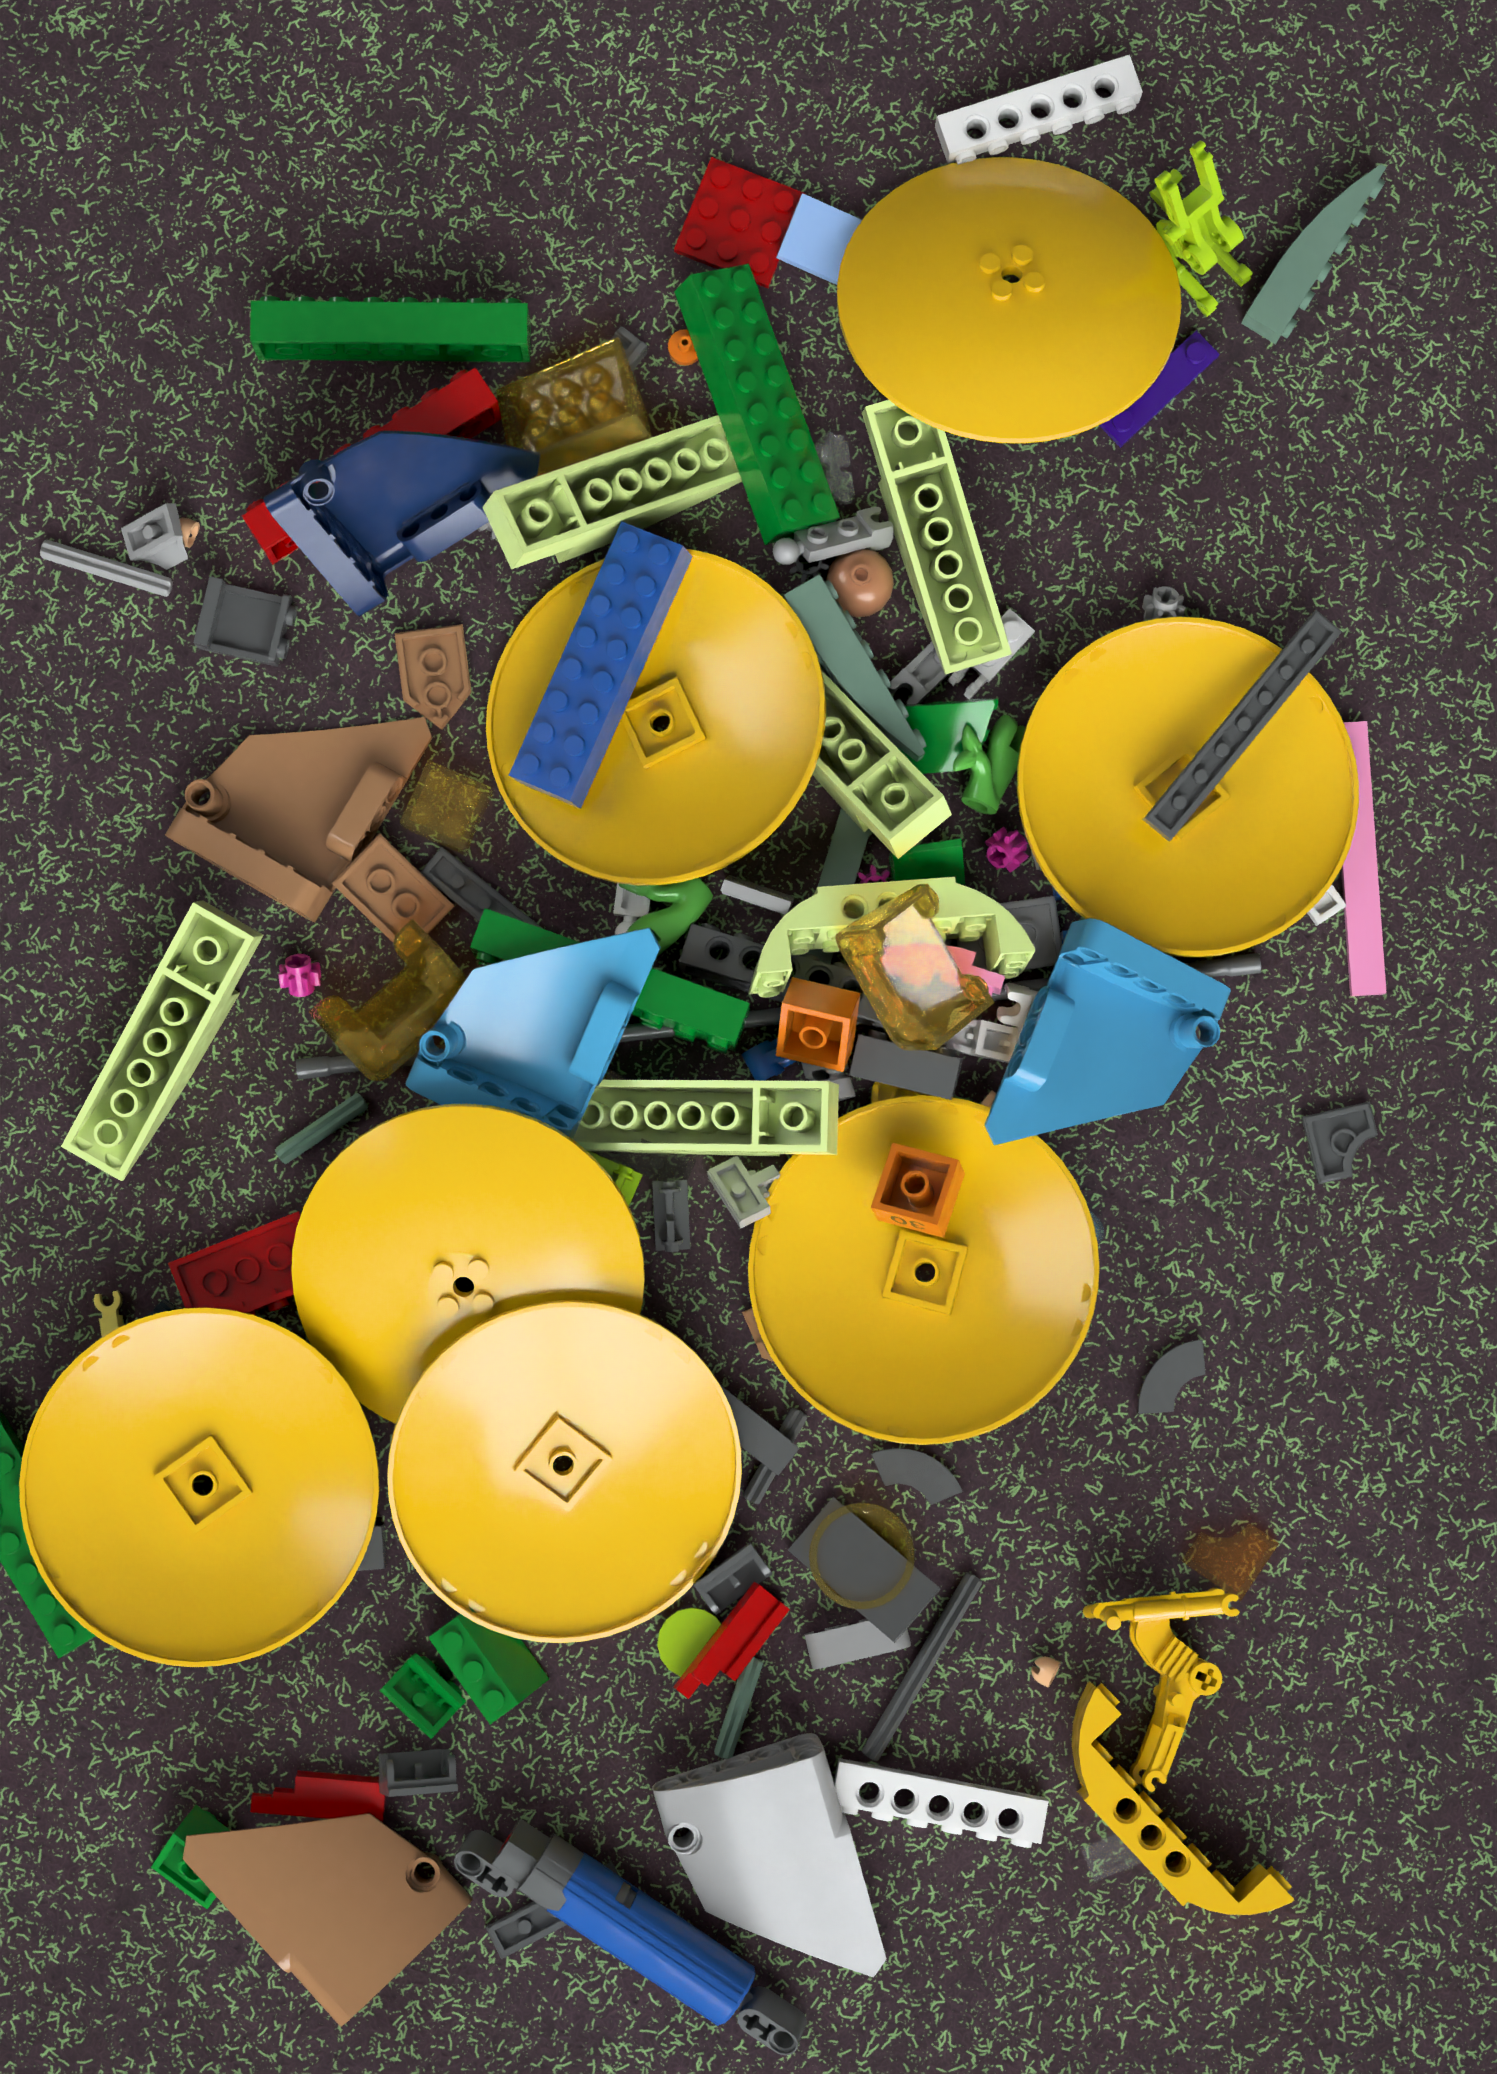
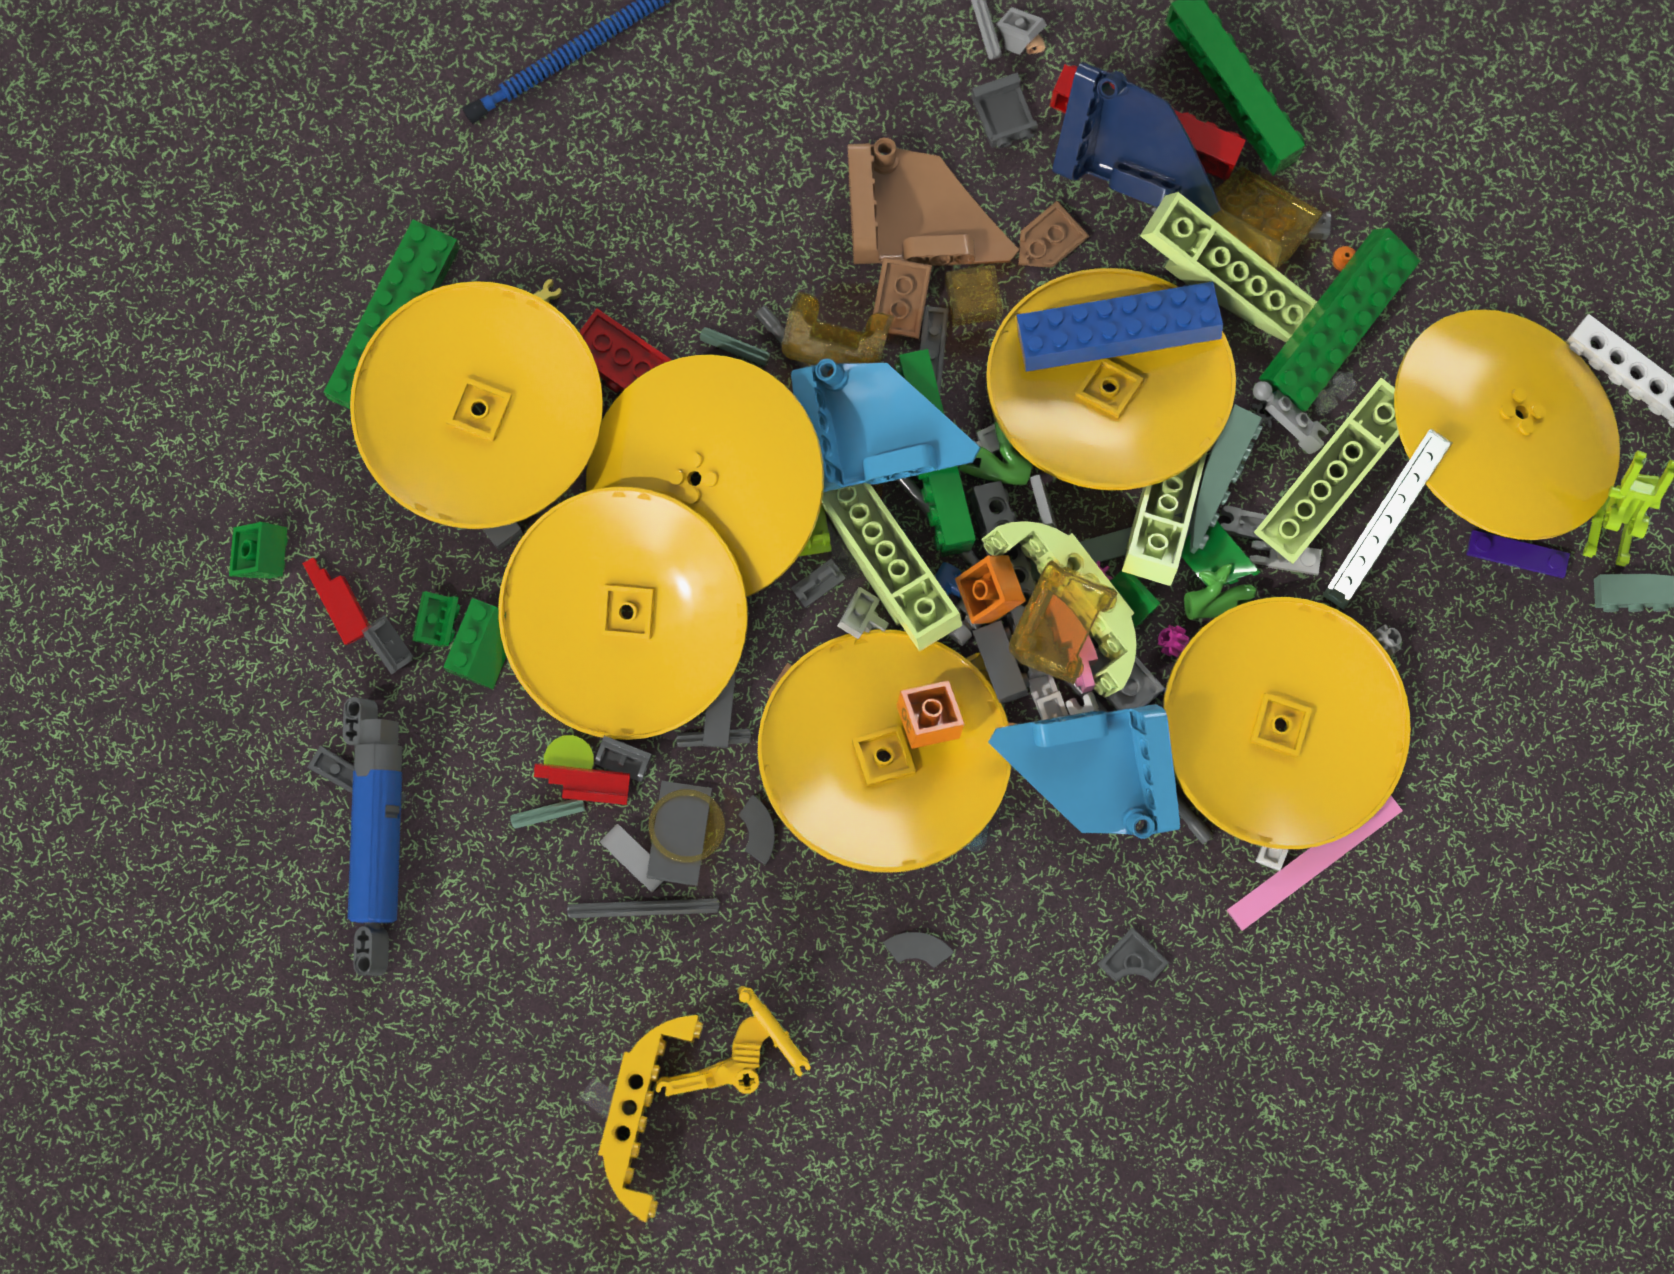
camera: 60 degrees right, 5 degrees down
(163, 1039) = (727, 219): yellowish green slope -> none
(299, 975) = (817, 274): dark pink gear -> none
(330, 1901) = (279, 641): medium nougat panel -> none
(738, 220) = (1444, 242): red plate -> none
(775, 1851) = (474, 889): panel -> none
(817, 238) = (1465, 291): light blue tile -> none
(861, 581) = (1275, 451): nougat cylinder -> none
(1026, 1829) = (549, 906): white brick -> none
(1033, 511) = (1387, 518): none -> tile
(1047, 1670) = (689, 986): light nougat hinge -> none
(1231, 1561) = (829, 1058): clear orange tile -> none
(1242, 725) = (1346, 732): dark grey tile -> none

